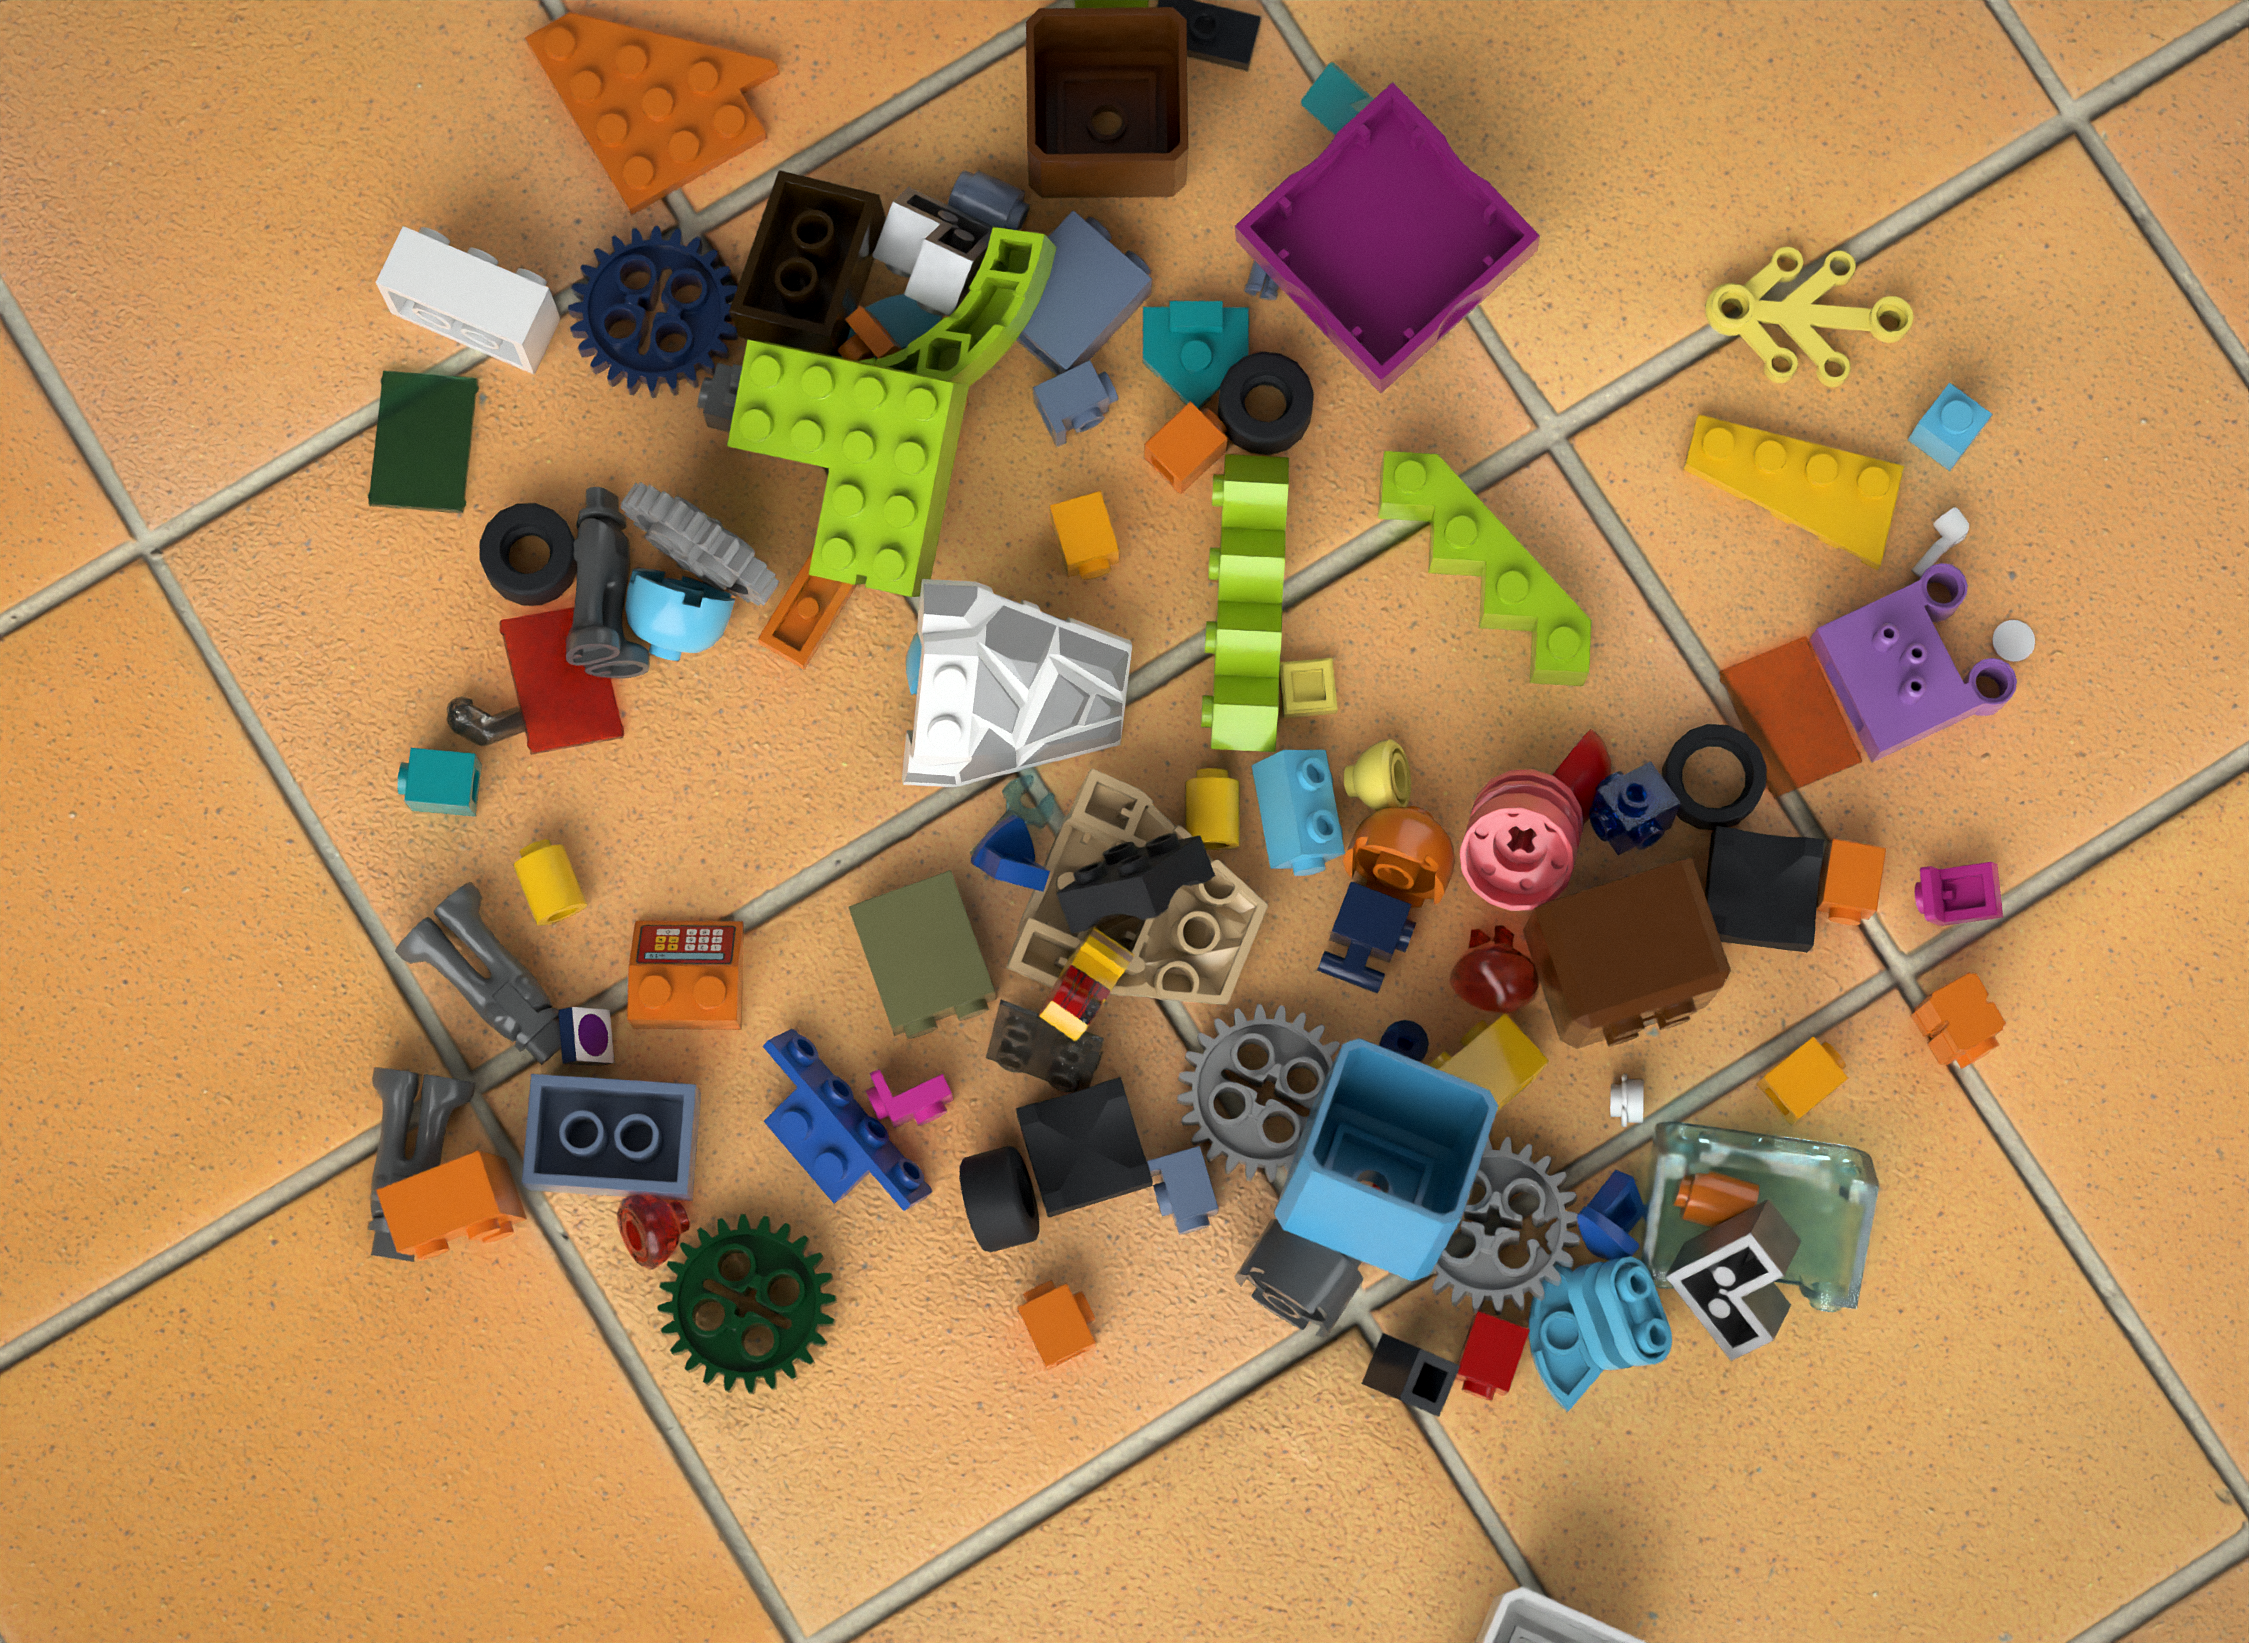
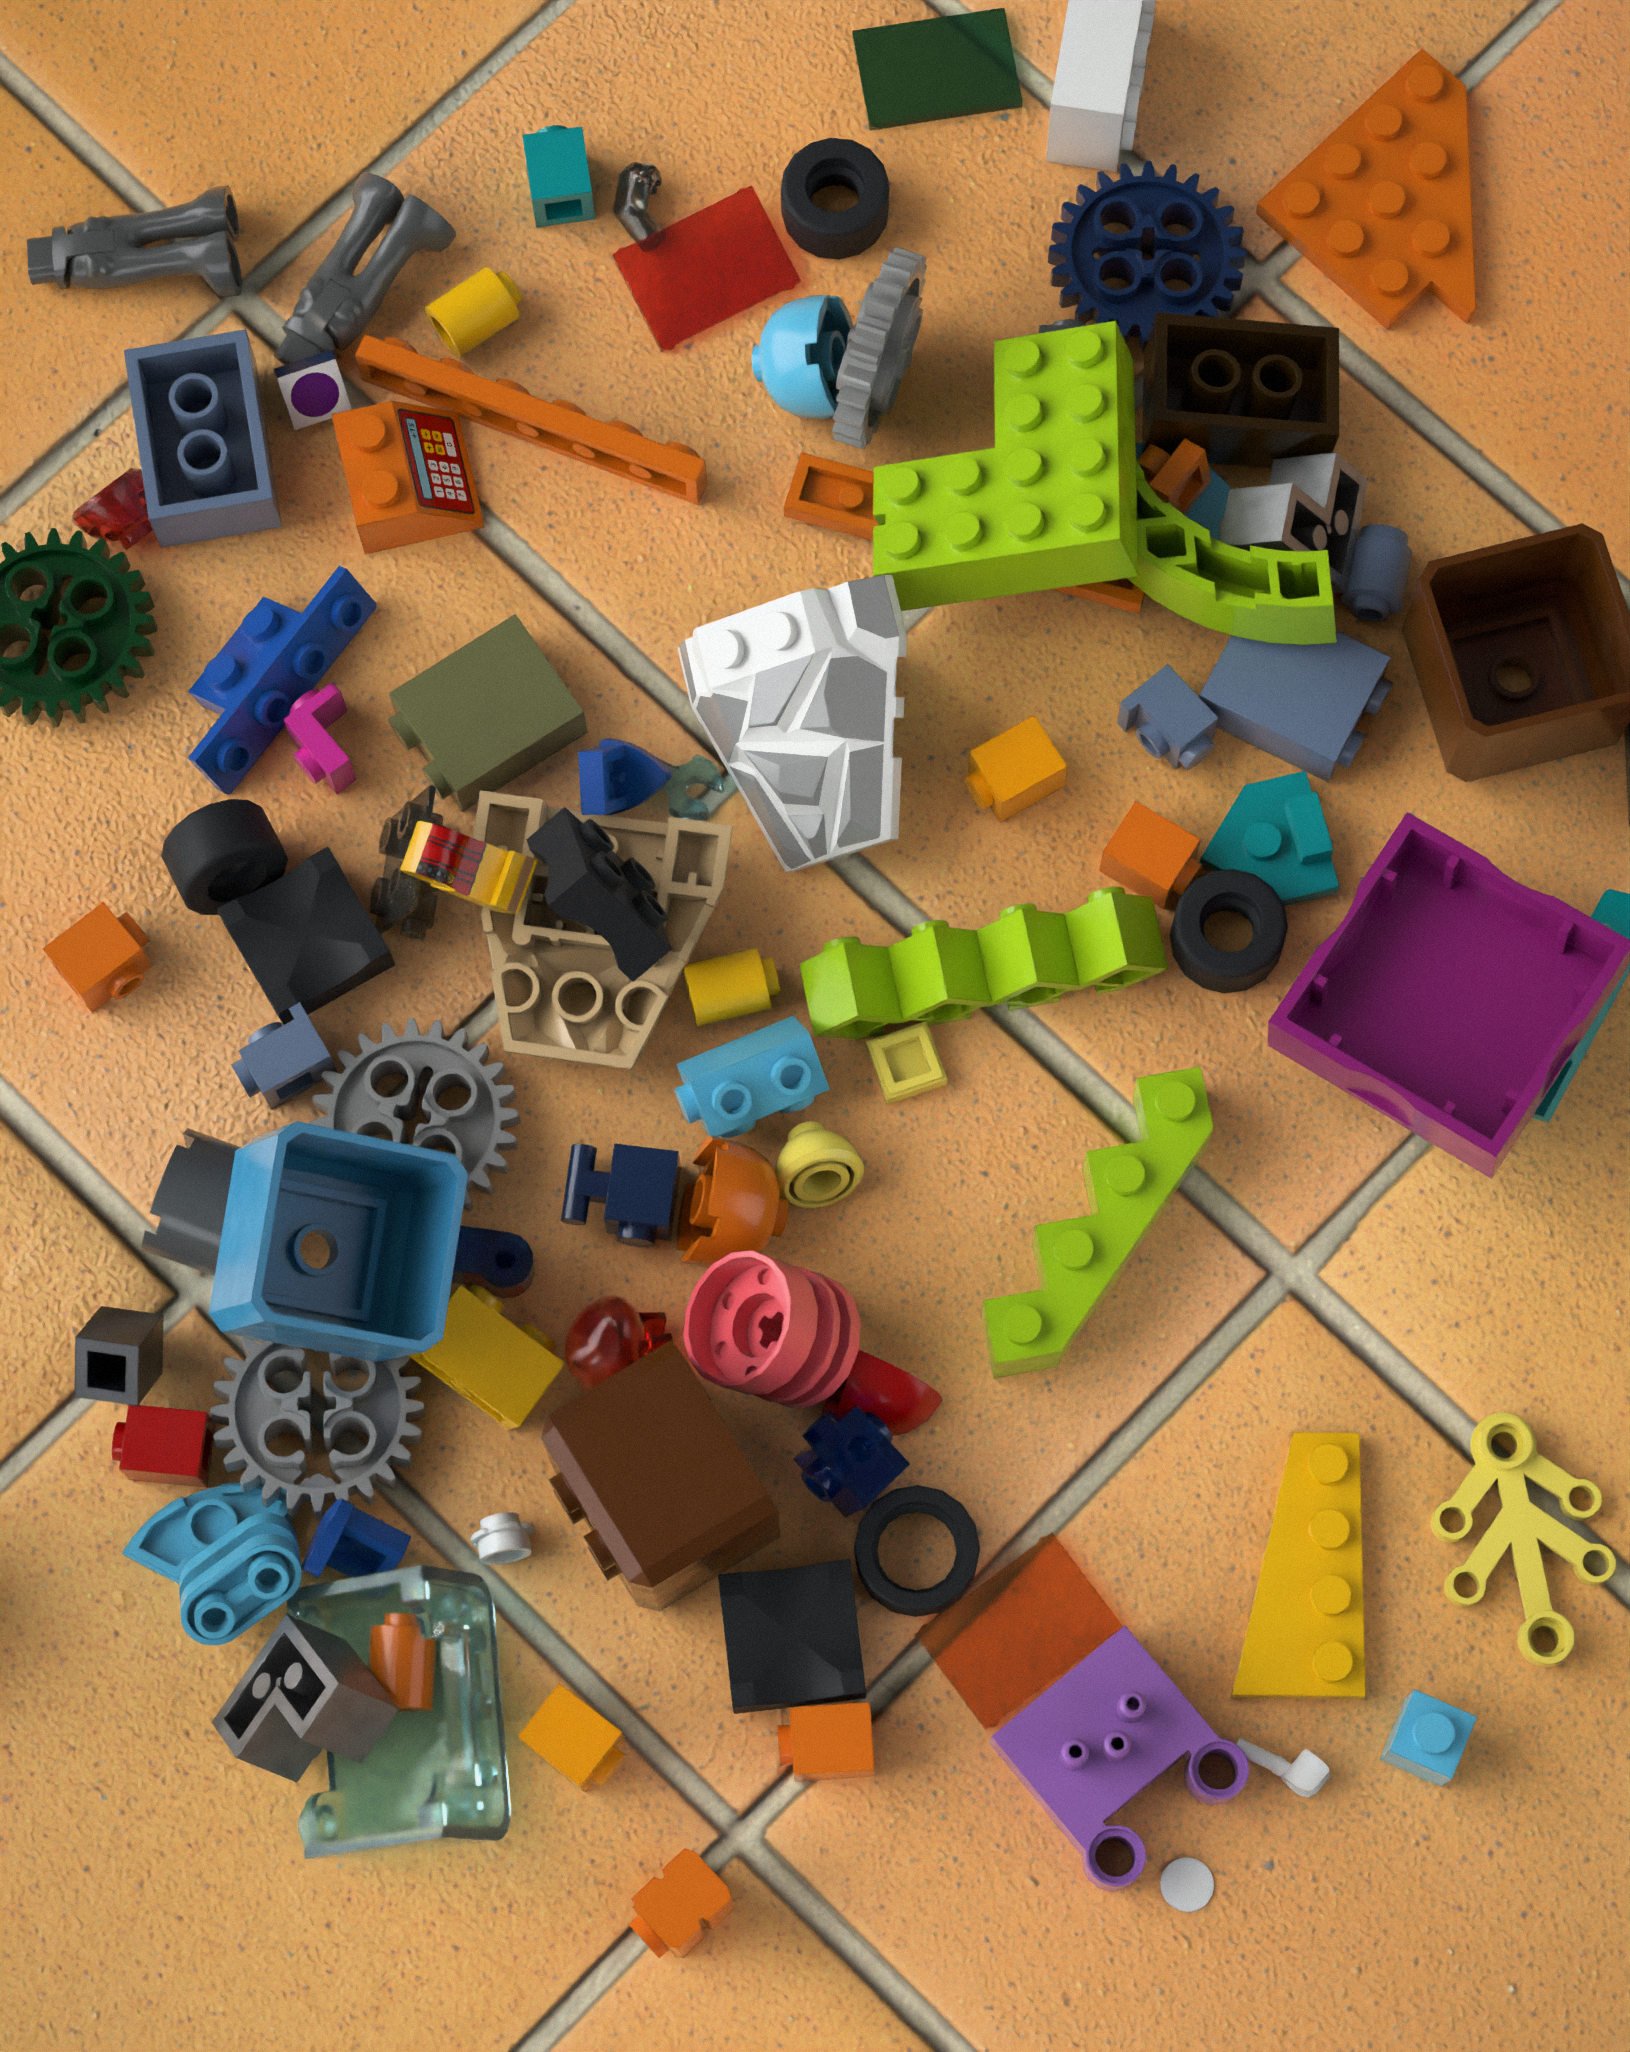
camera: 80 degrees right, 5 degrees down
(456, 1199) = (91, 289): orange brick -> none
(601, 586) = (832, 268): dark grey piece -> none
(648, 873) = (513, 411): none -> orange plate
(1959, 894) = (846, 1877): dark pink bracket -> none

